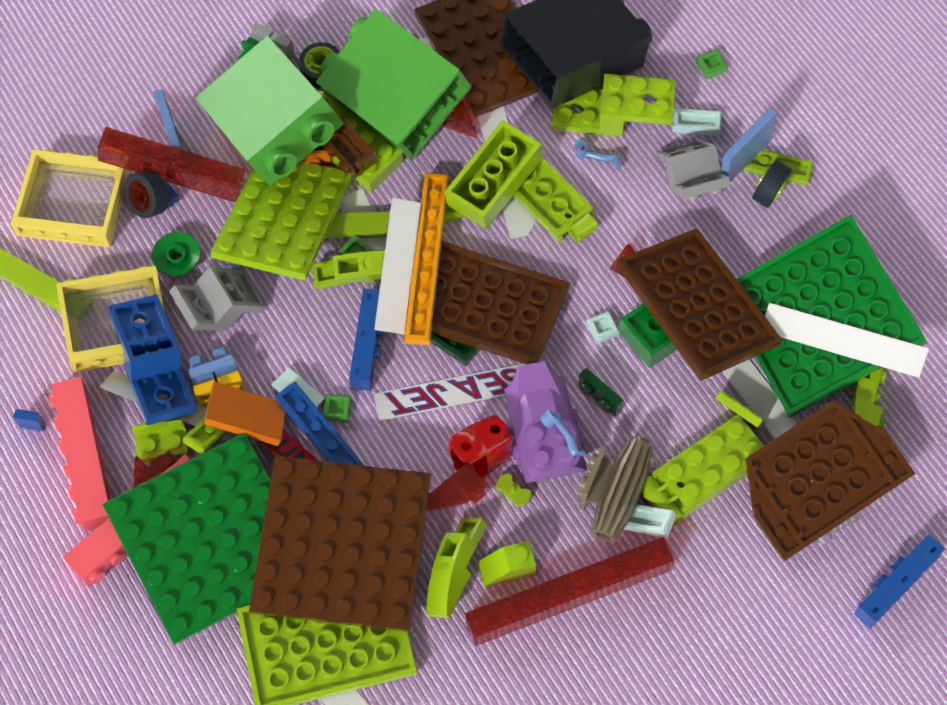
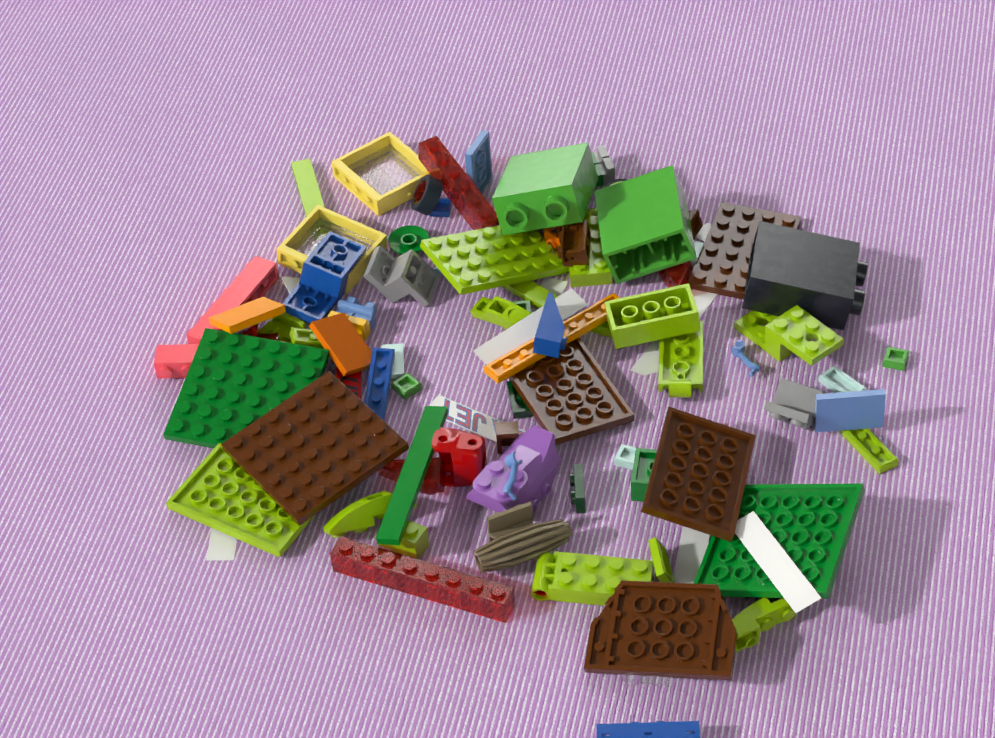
camera: 45 degrees right, 20 degrees down
(29, 420) = (225, 269): blue tile -> none
(123, 457) = (247, 315): none -> light orange tile
(366, 343) = (458, 364): blue piece -> none
(426, 255) = (550, 332): none -> blue slope
(466, 501) = (411, 477): none -> green tile
(489, 389) = (506, 433): none -> panel
(513, 490) = (458, 504): lime piece -> none
(651, 521) = (520, 577): light aqua tile -> none
(771, 183) = (845, 447): black wheel -> none

